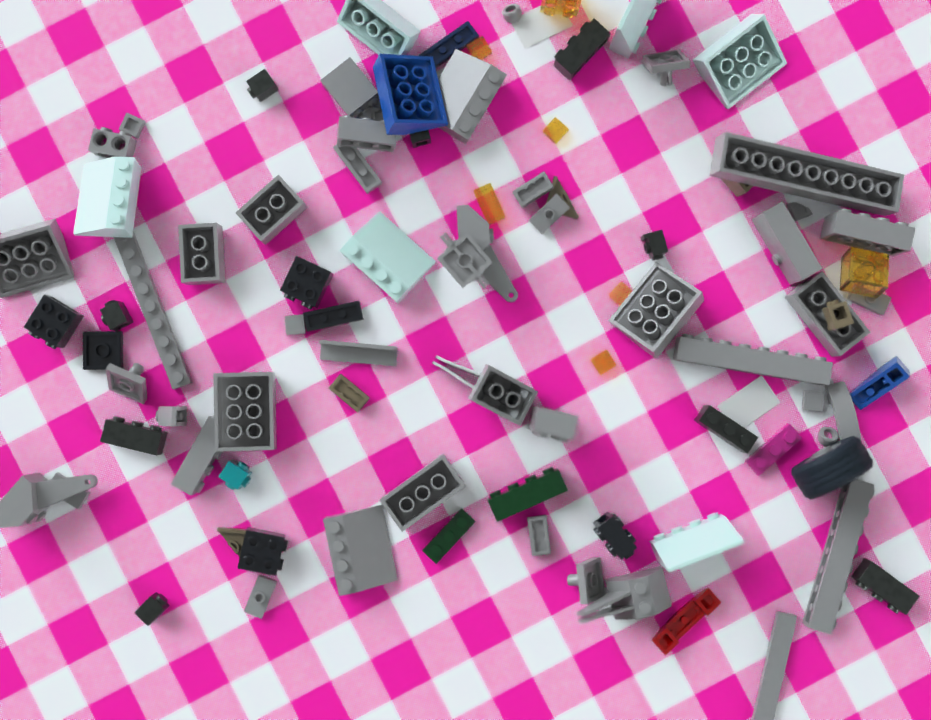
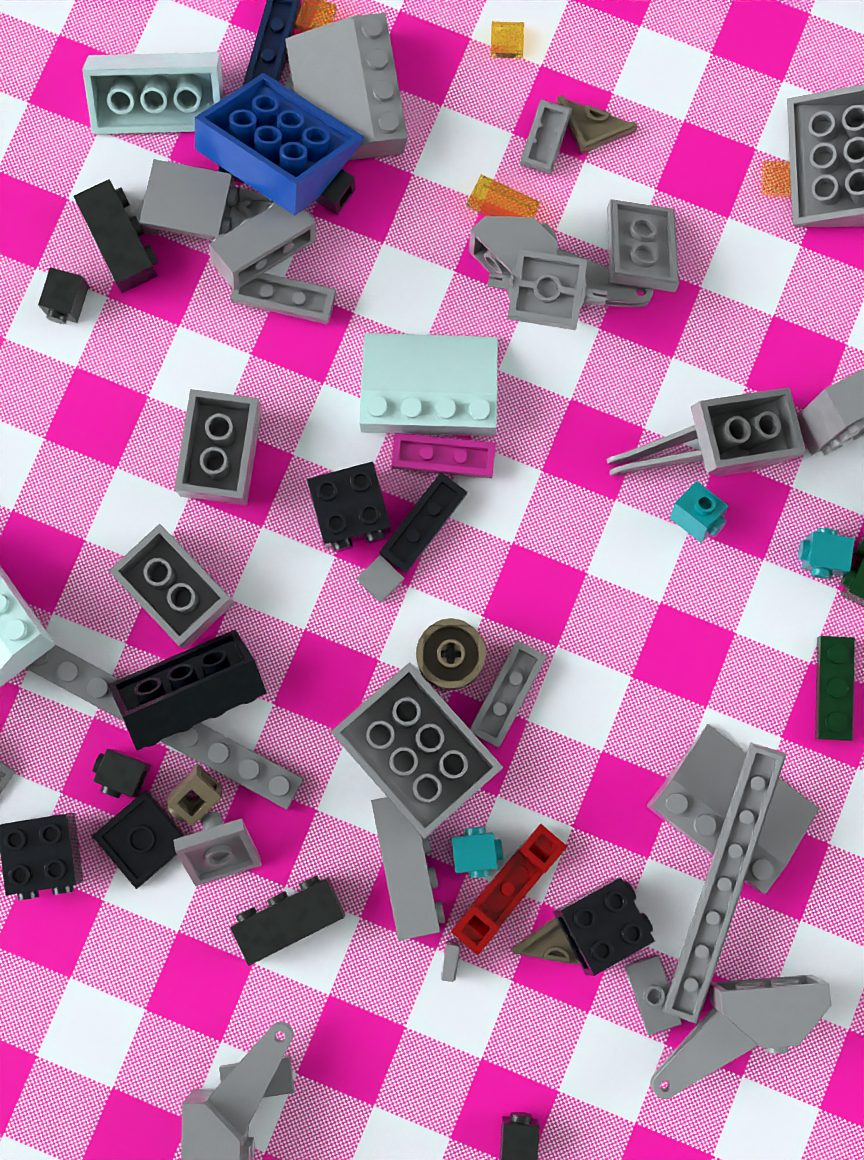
camera: 45 degrees left, 5 degrees down
(138, 351) = (189, 808): none -> dark tan brick
(170, 303) = (187, 689): none -> black slope
(171, 416) = (316, 846): light grey slope -> none
(186, 511) = (450, 961): none -> light grey tile
(235, 501) = (508, 888): none -> red slope
(284, 384) = (464, 640): none -> dark tan brick
(291, 639) = (744, 1015): none -> light grey slope
(306, 419) = (507, 693): none -> light grey plate
(307, 77) = (117, 235): none -> pearl dark grey brick
(325, 576) = (724, 882): none -> light grey tile
(349, 393) = (534, 608): dark tan plate -> none
(358, 353) = (499, 543): light grey panel -> none
(367, 294) = (443, 455): none -> dark pink plate
(422, 492) = (752, 655): light grey brick -> none
(454, 412) = (699, 512): none -> teal brick
(494, 475) = (826, 553): none -> teal brick
(531, 274) = (642, 245): none -> light grey tile
(549, 213) = (595, 149): light grey plate -> none
(603, 362) = (833, 285): clear yellow tile -> none
(655, 244) = (767, 76): pearl dark grey brick -> none

